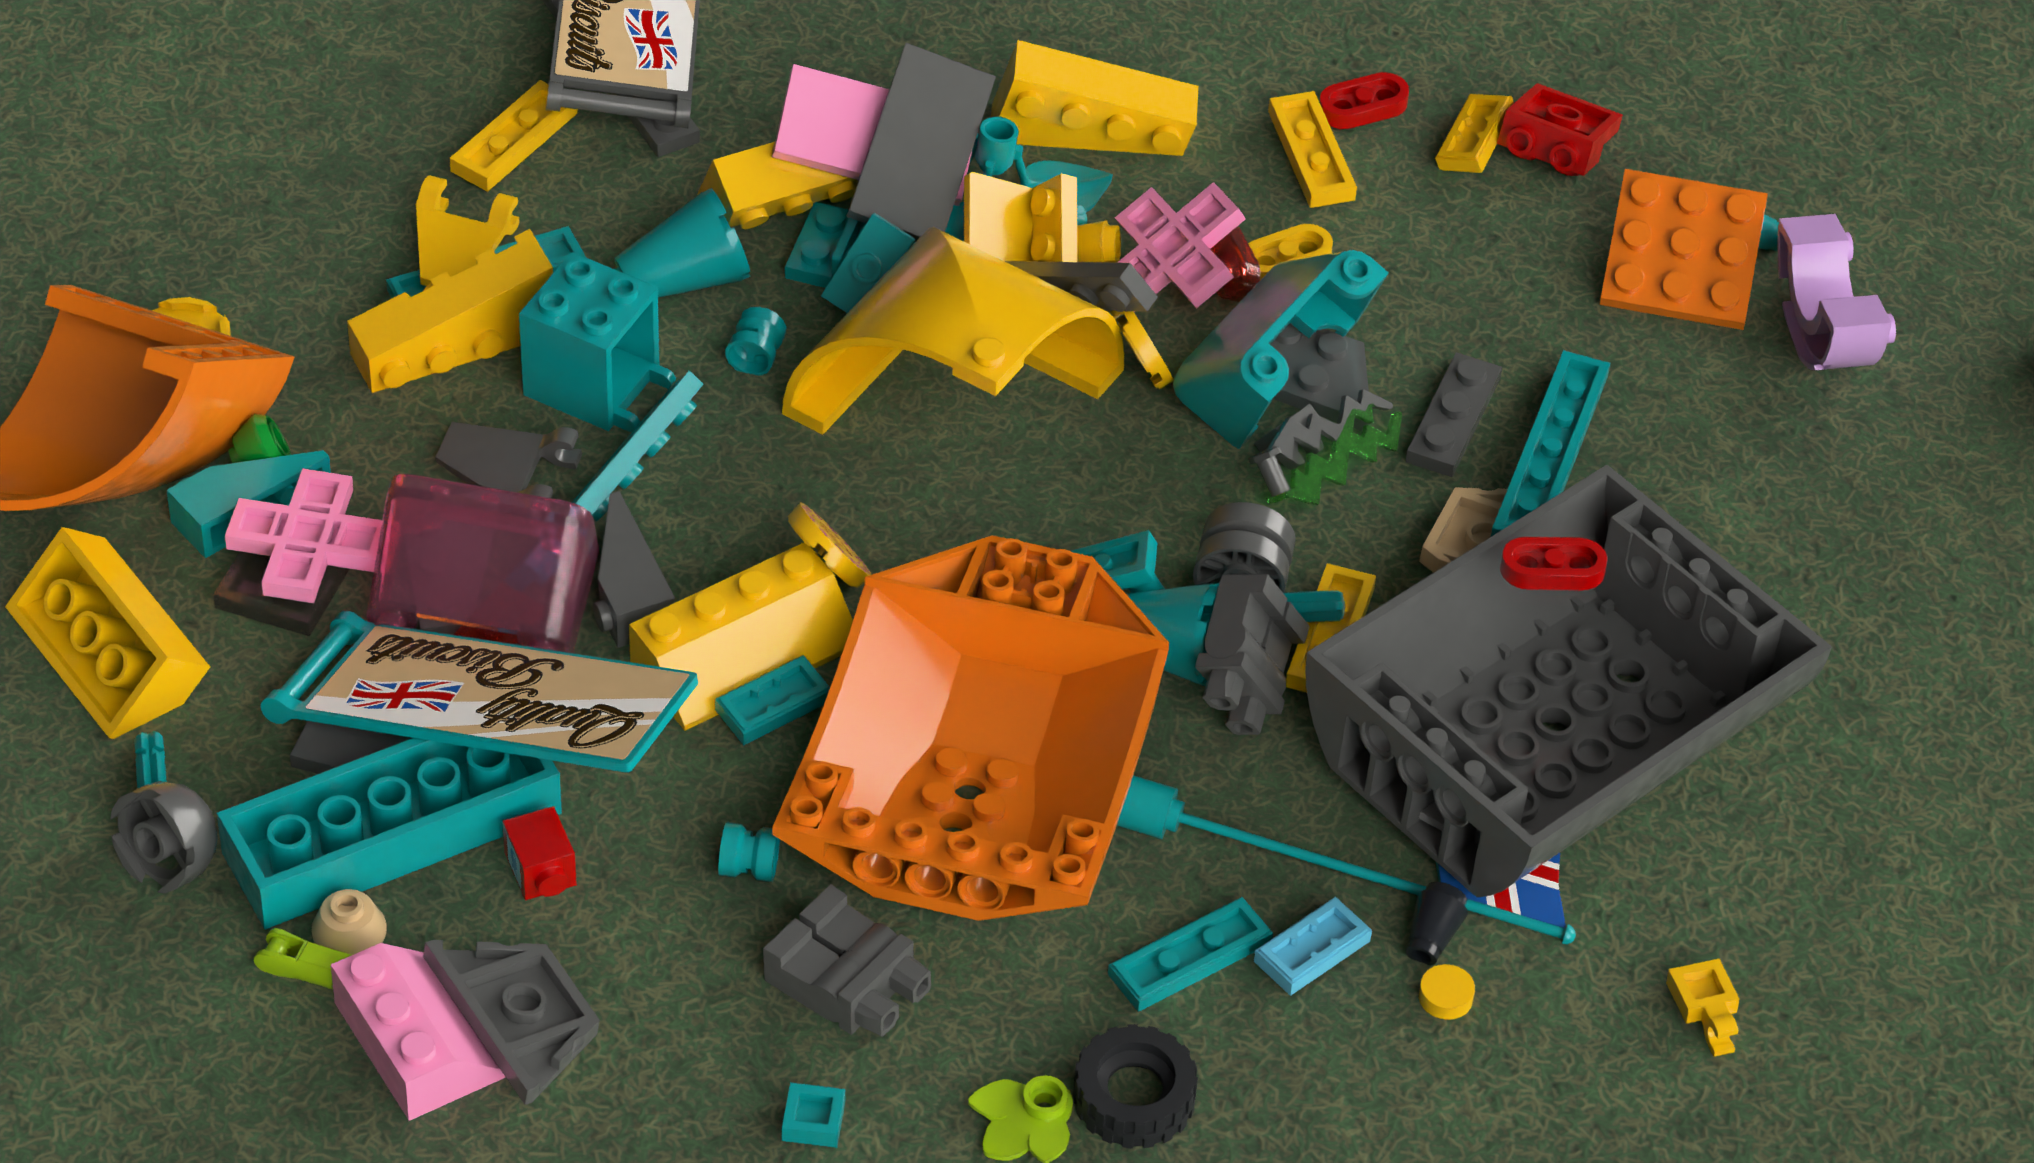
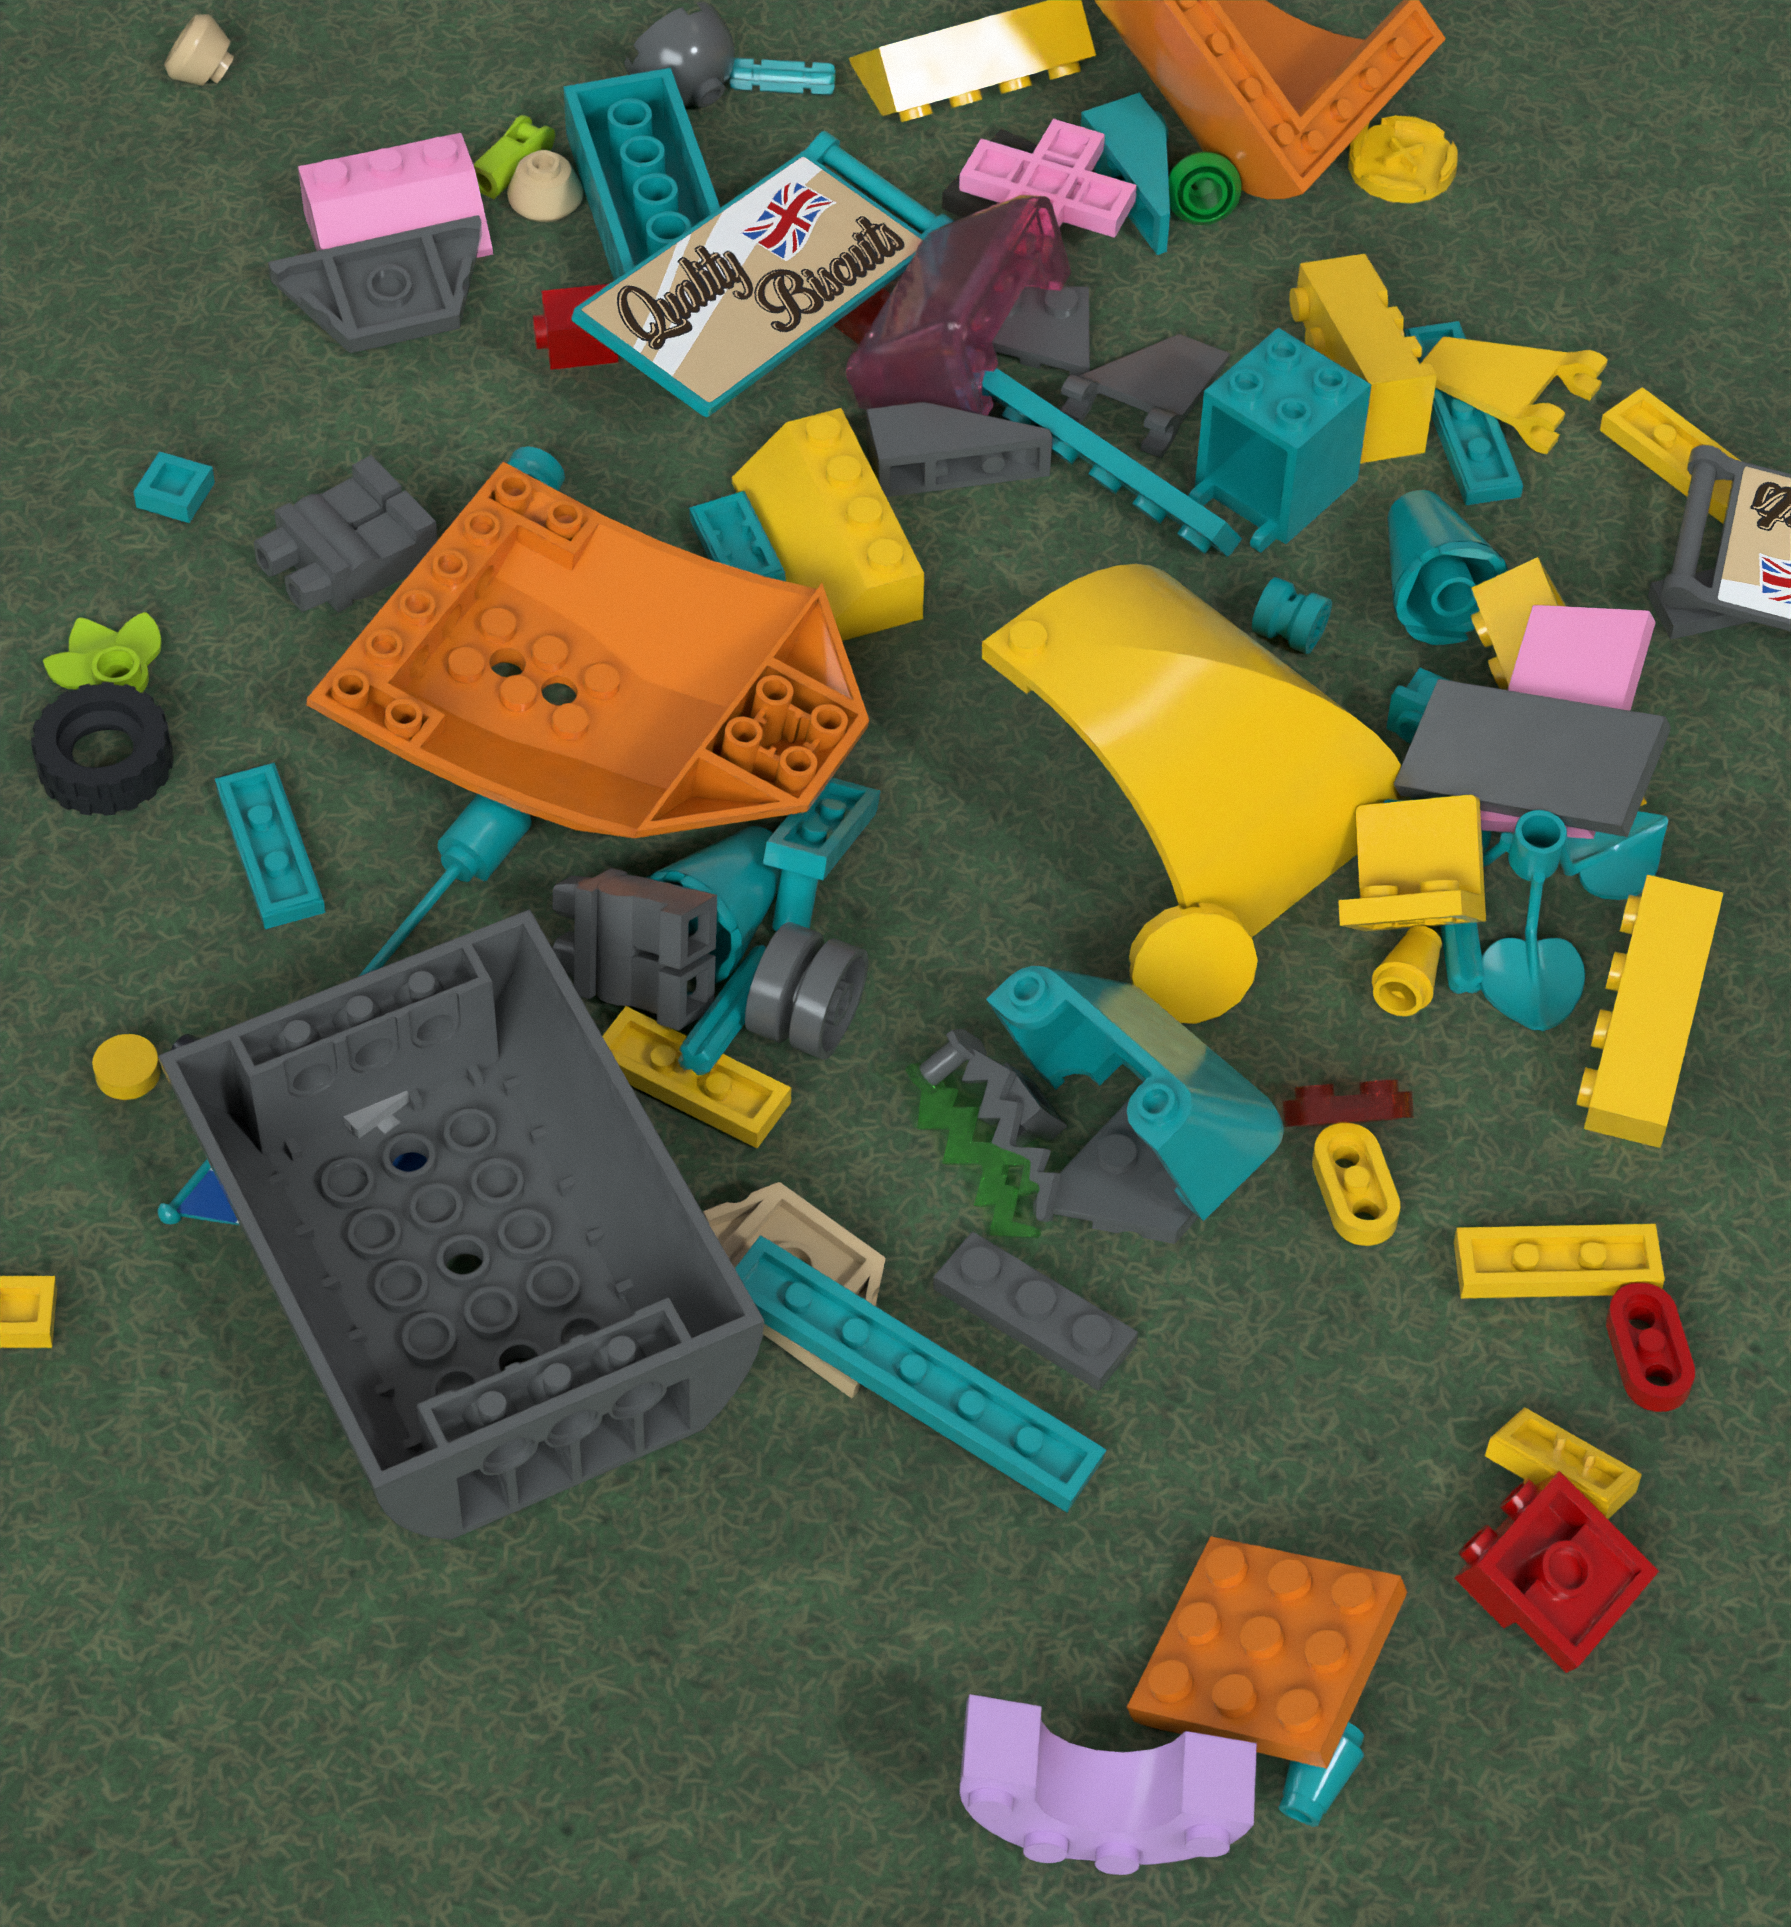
camera: 105 degrees right, 5 degrees up
(836, 551) = (927, 606): yellow tile -> none
(867, 262) = (1386, 710): teal plate -> none
(1099, 283) = (1266, 881): dark grey plate -> none
(1179, 244) = (1375, 1041): bright pink plate -> none
(1312, 945) = (230, 949): medium azure plate -> none
(1553, 563) = (578, 1188): red plate -> none

